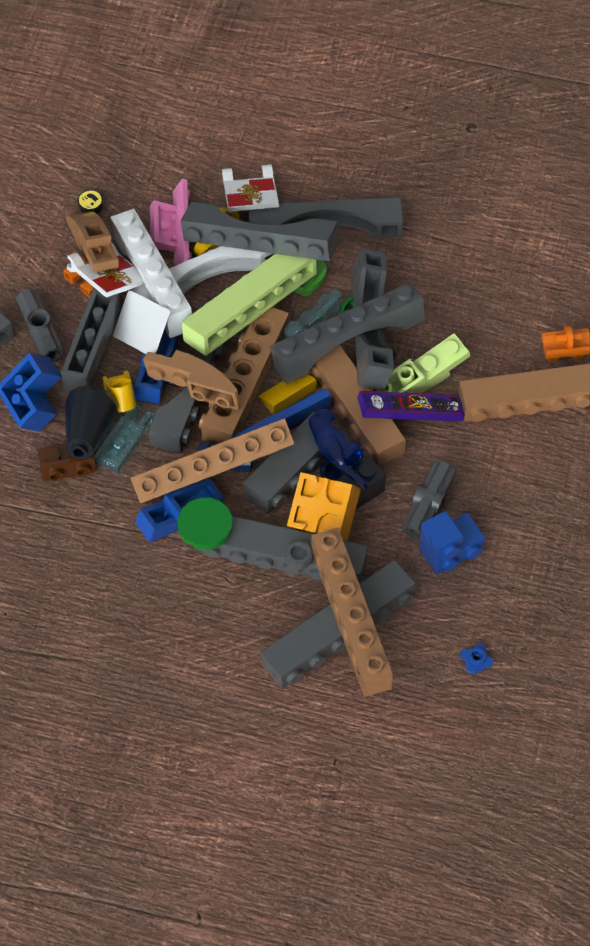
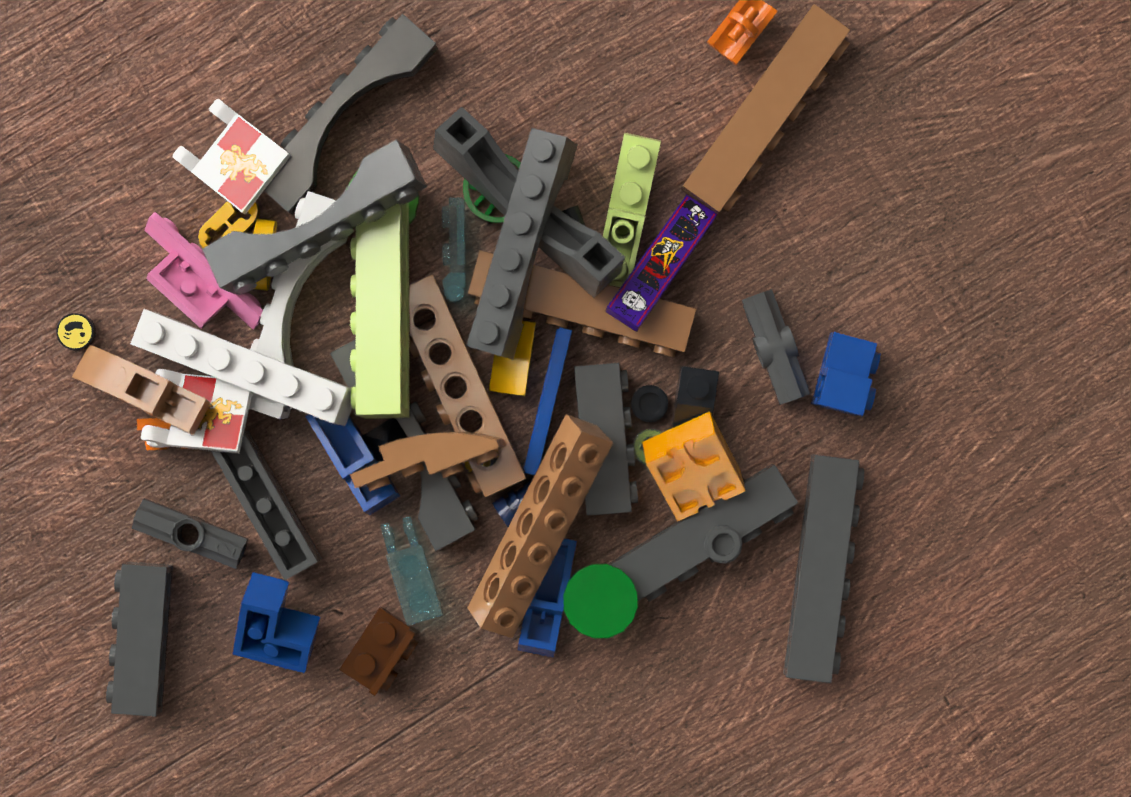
camera: 45 degrees left, 30 degrees up
(88, 419) = (370, 607): black cone -> none
(122, 390) = (356, 530): yellow piece -> none
(141, 323) = (302, 441): white sticker -> none
(336, 446) = (642, 392): clear blue animal -> none
(351, 612) = (839, 561): medium nougat brick -> none
(476, 666) = (971, 478): blue plate -> none

